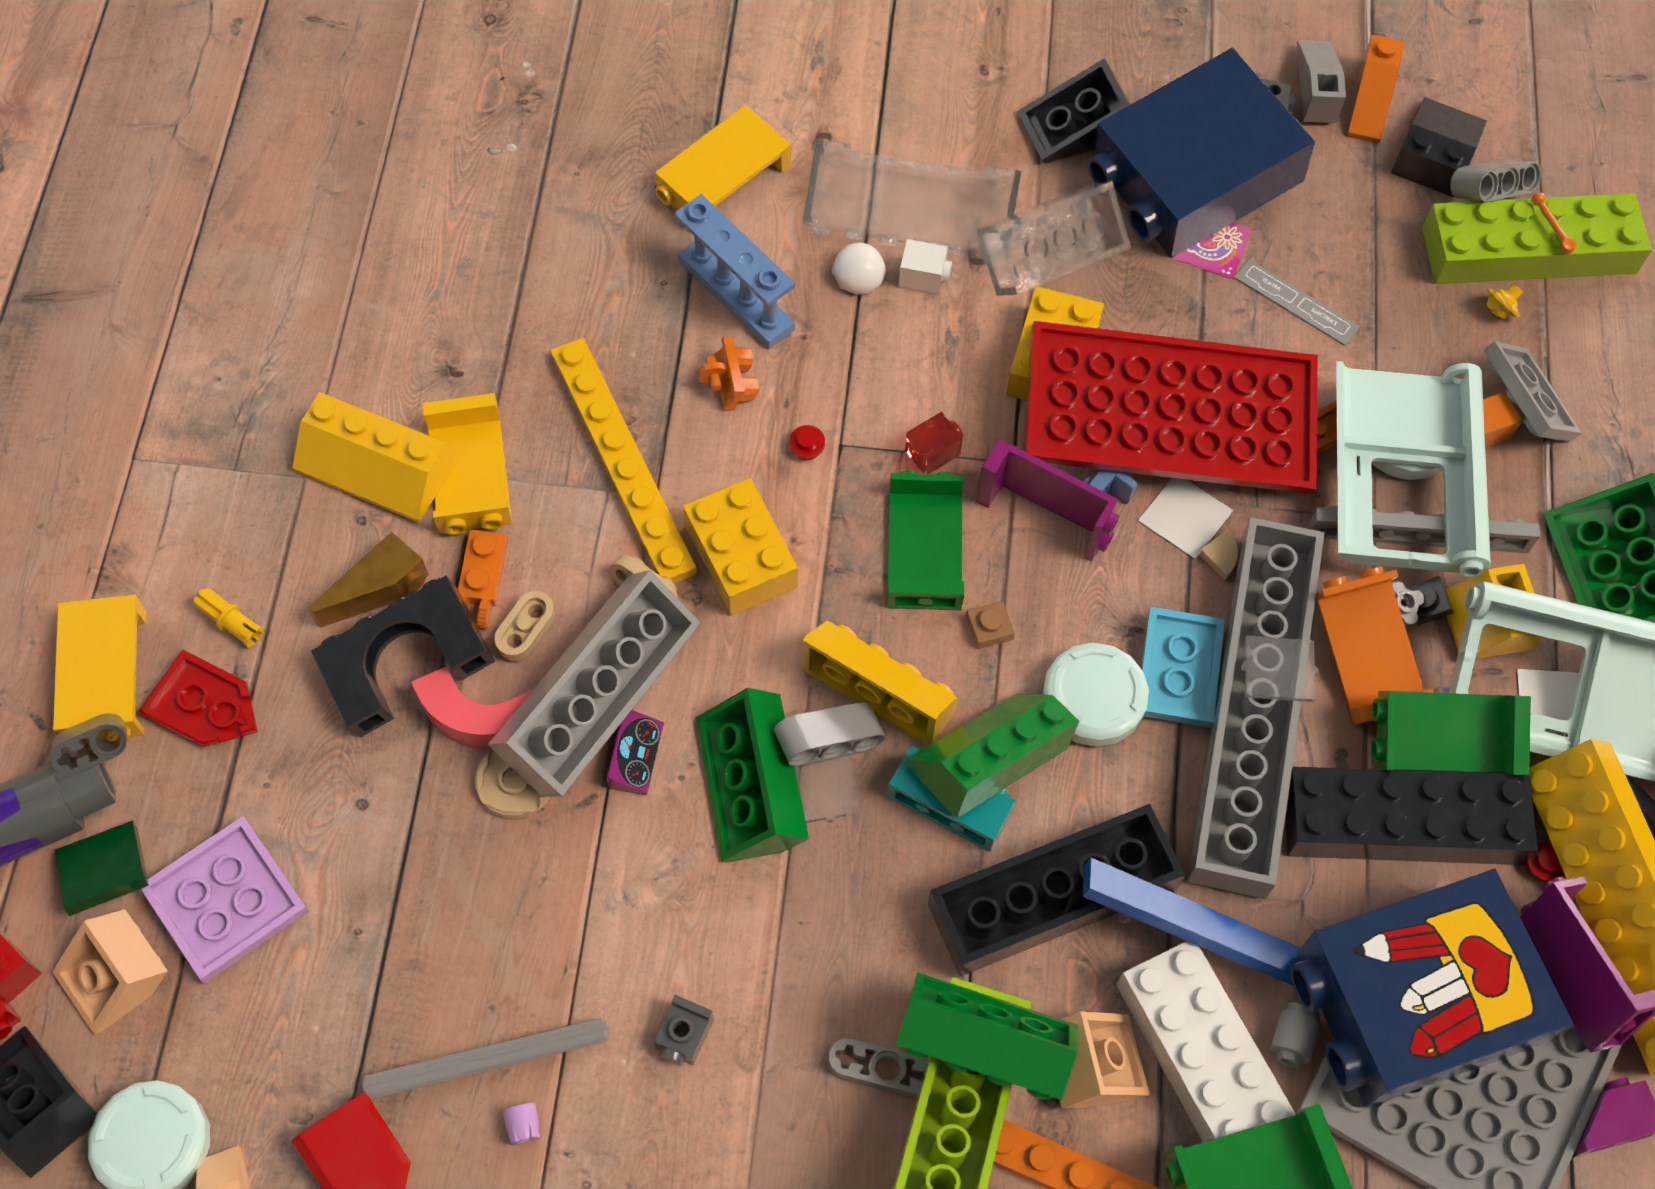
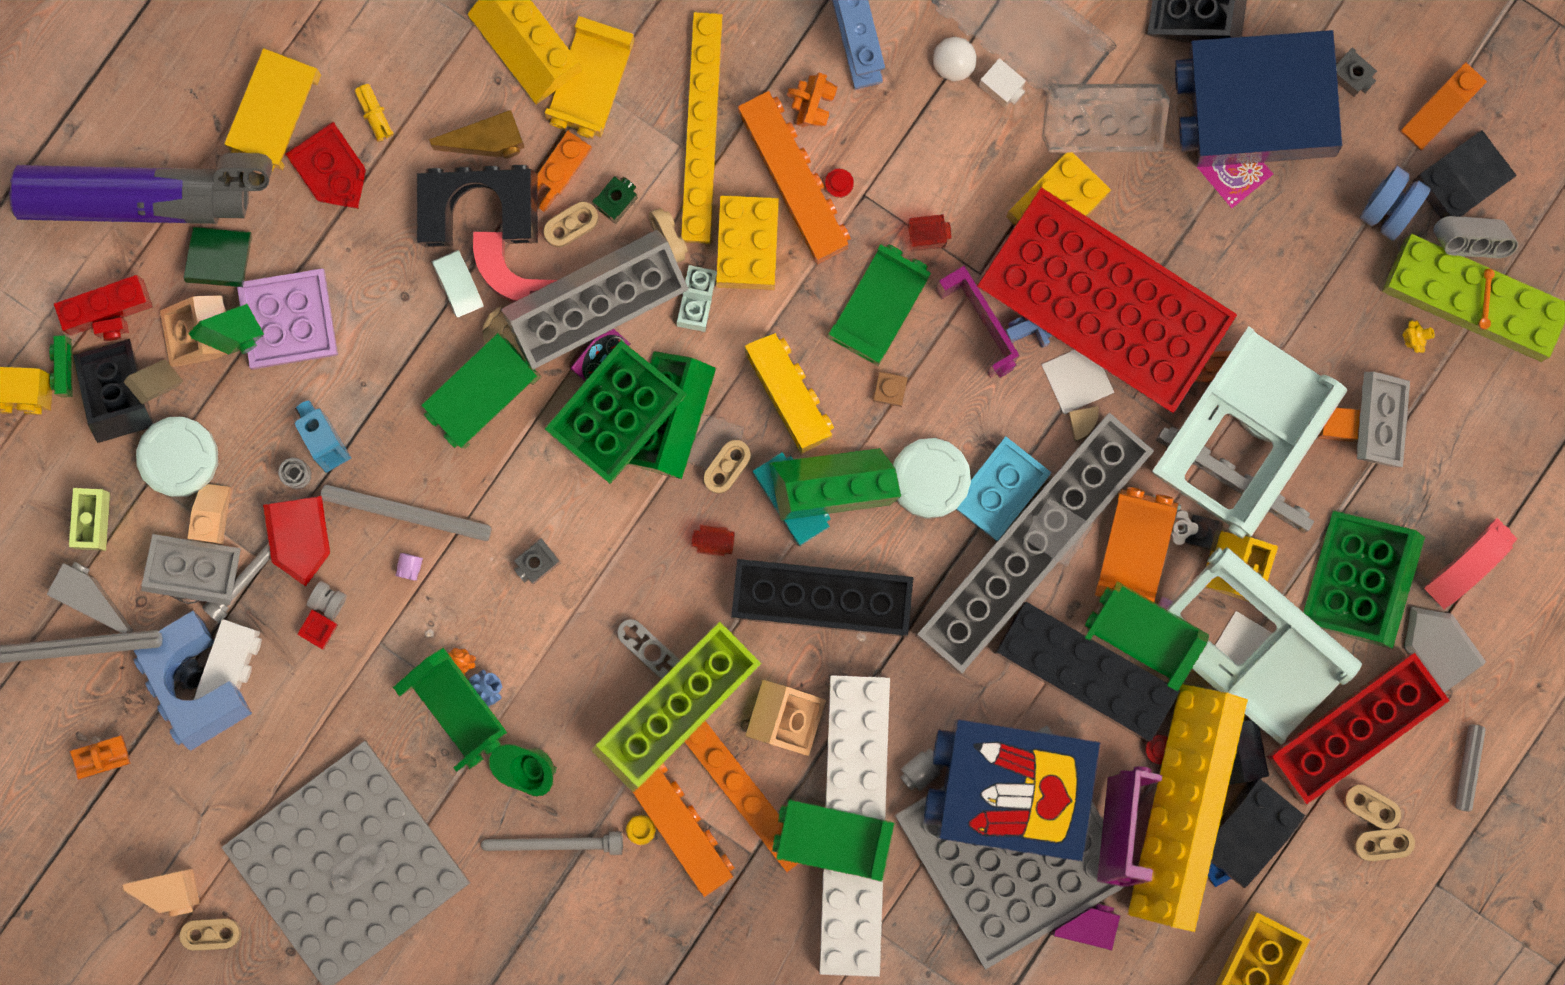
camera: 25 degrees right, 20 degrees up
(75, 1057) = (153, 381): none -> dark tan tile
(149, 939) = (229, 331): none -> green slope
(323, 1088) = (296, 478): none -> light grey wheel
(332, 1017) = (320, 437): none -> dark azure torso
(421, 753) = (457, 283): none -> light aqua slope
(507, 860) = (479, 391): none -> green panel
(564, 584) = (614, 209): none -> dark green brick
(687, 798) = (615, 412): none -> green slope
(715, 636) = (698, 299): none -> light aqua slope
(747, 452) = (793, 177): none -> orange brick
(829, 733) = (733, 414): light grey beam -> none
(854, 800) = (727, 467): none -> tan plate
(886, 893) = (713, 540): none -> clear red brick
(988, 1037) = (717, 672): green slope -> none
(1188, 920) = (892, 666): tile -> none
(1297, 302) = (1267, 252): light grey sticker -> none
(1320, 81) = (1406, 73): light grey slope -> none
(1396, 185) = (1391, 200): none -> medium blue wheel

